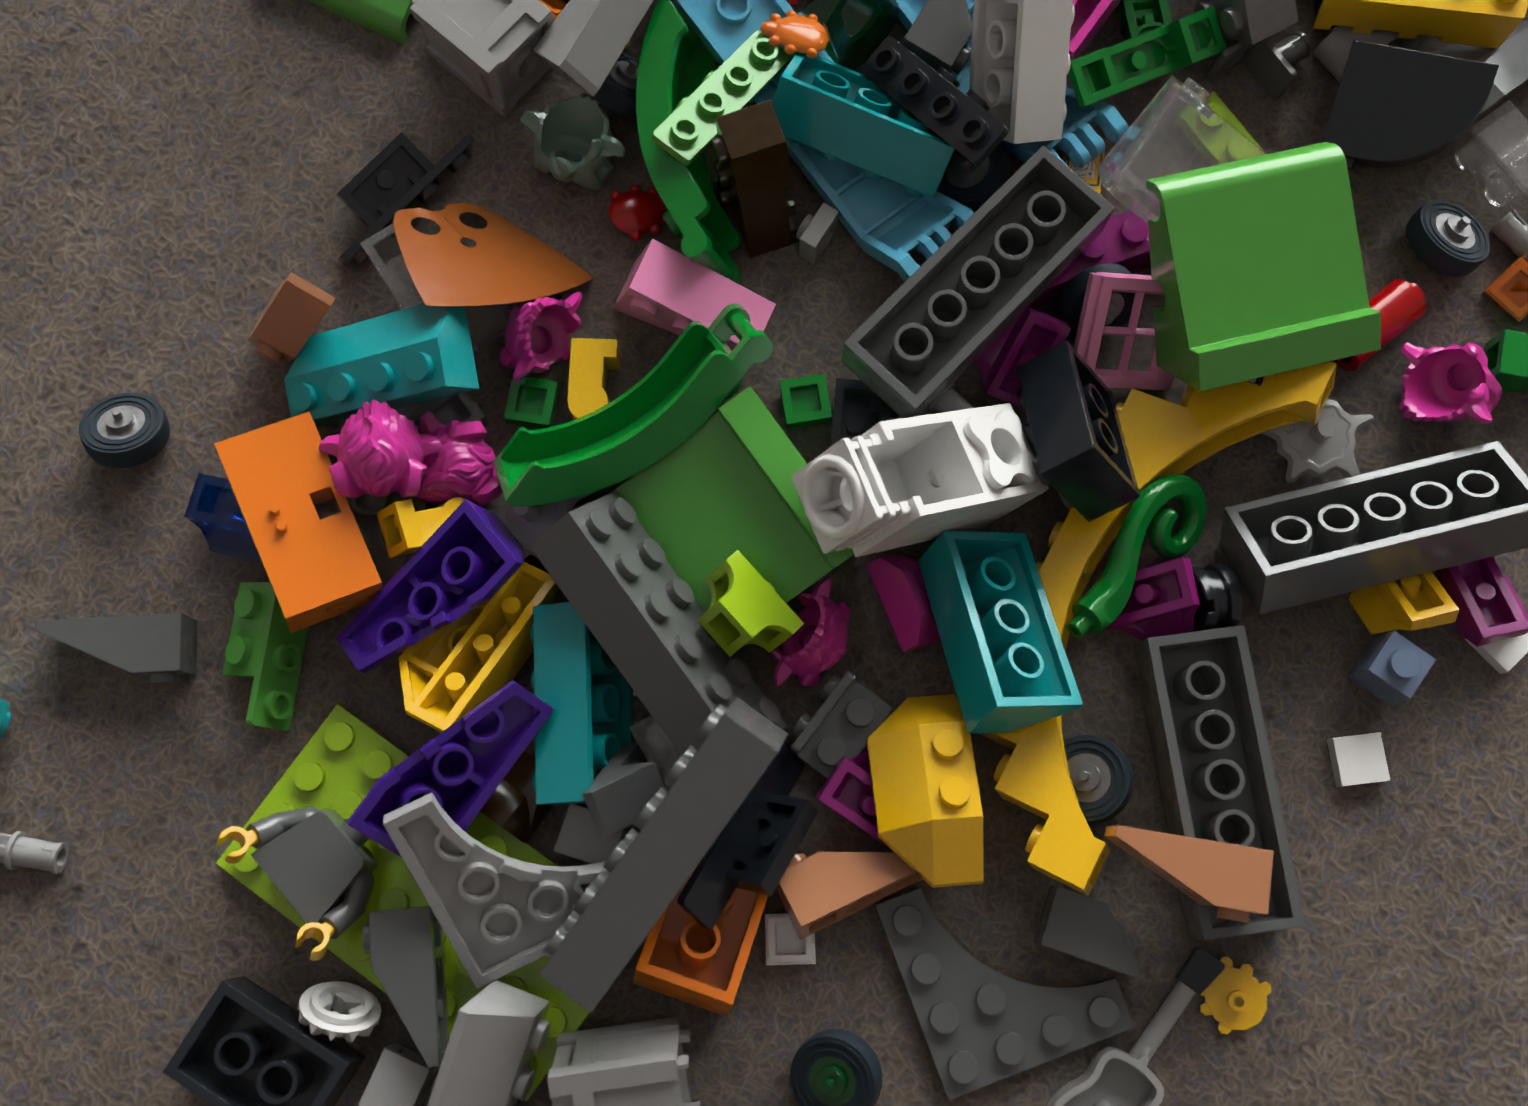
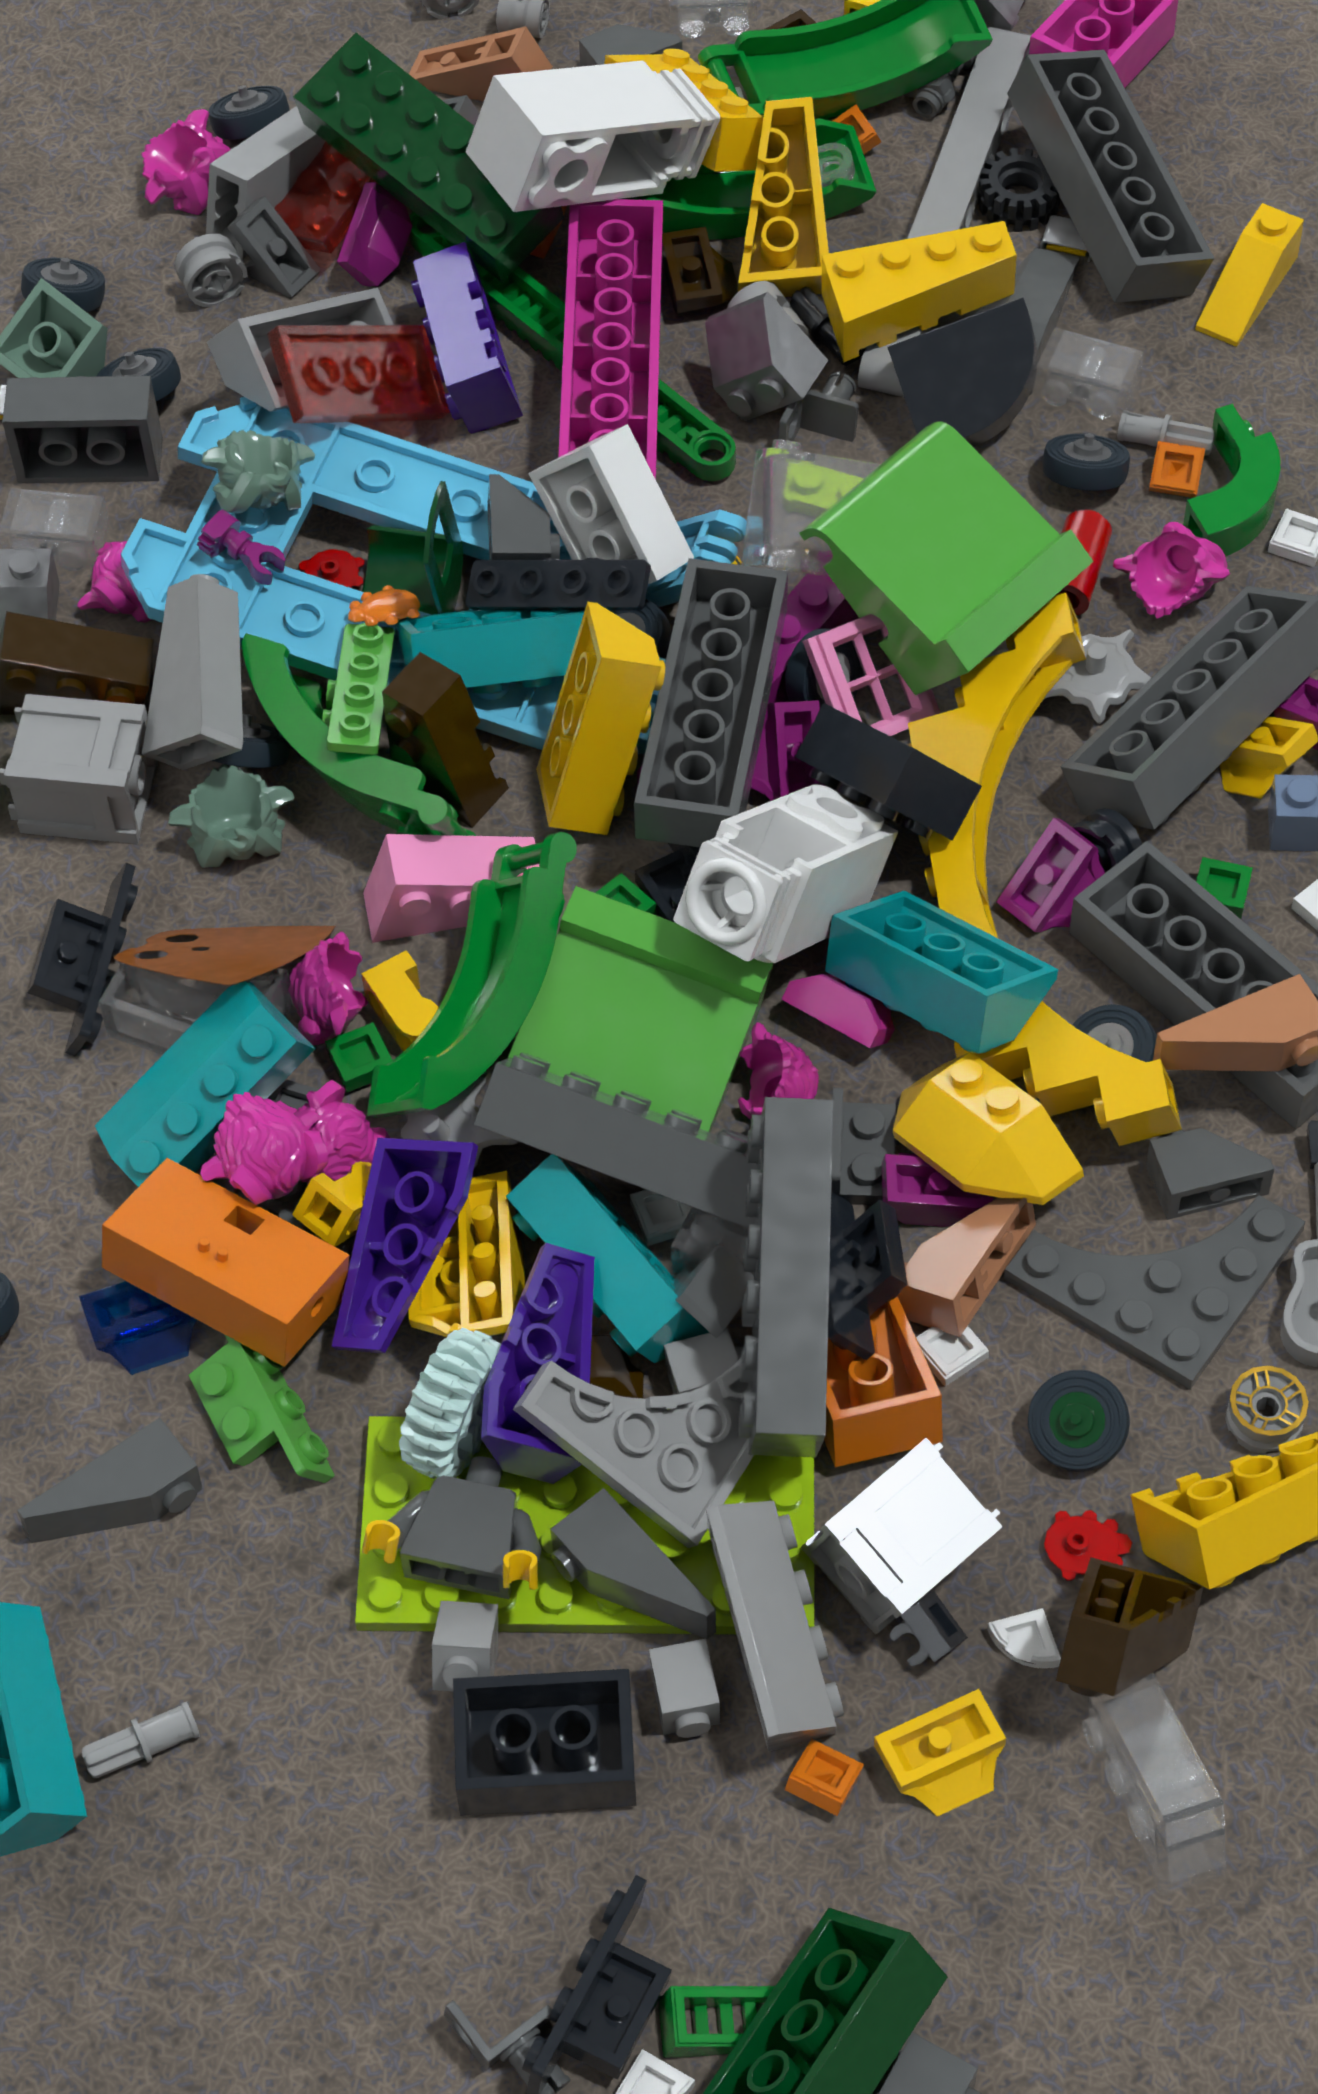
camera: 35 degrees left, 20 degrees down
(264, 946) = (464, 1642): none -> light grey brick
(289, 319) = (78, 1100): nougat slope -> none
(354, 1010) = (580, 1654): white gear -> none
(355, 761) = (447, 1405): none -> light aqua gear
(637, 211) = (336, 846): red piece -> none
(746, 608) = (706, 1074): lime brick -> none
(817, 232) = (521, 766): light grey plate -> none
(881, 242) = (598, 722): none -> yellow slope
(1113, 588) = (1015, 887): green plant -> none
(1146, 57) = (719, 456): green slope -> none
(1283, 690) = (1226, 882): none -> green plate

